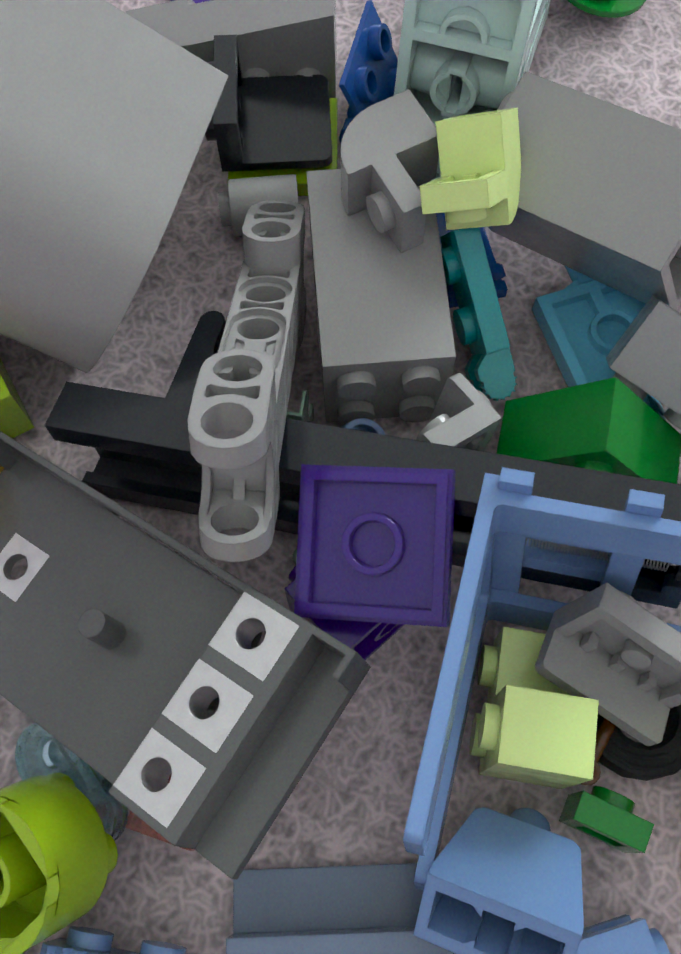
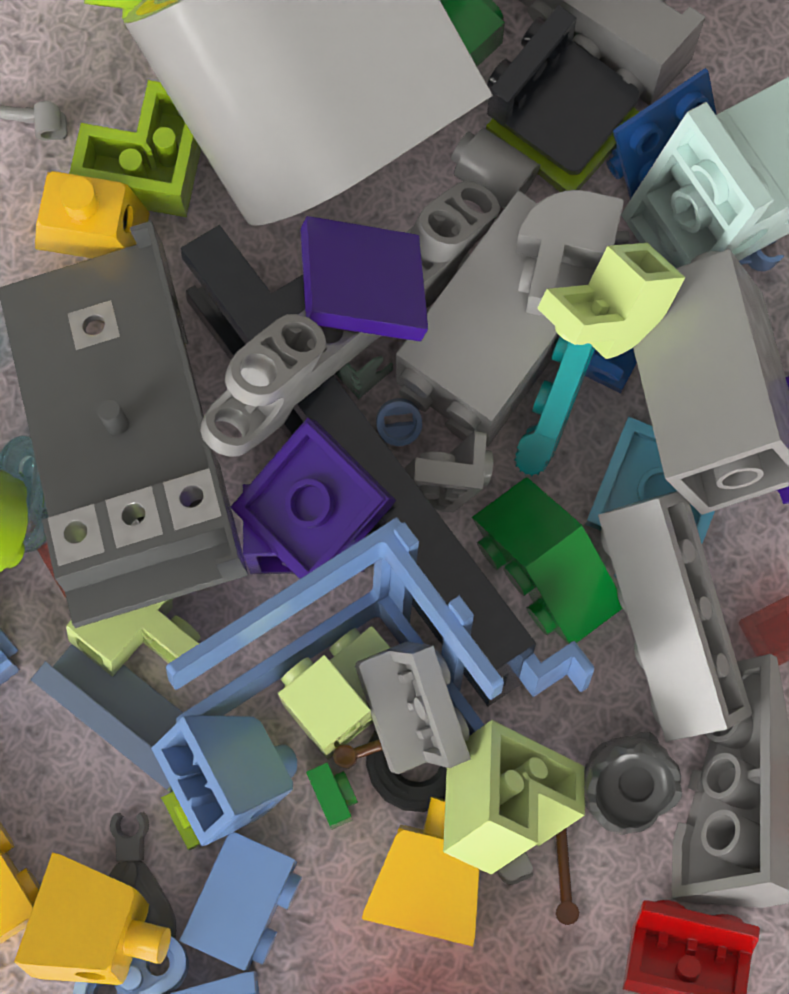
camera: 40 degrees right, 10 degrees up
(245, 304) = (363, 279): none -> dark purple tile
(328, 802) = (117, 638): none -> yellowish green brick

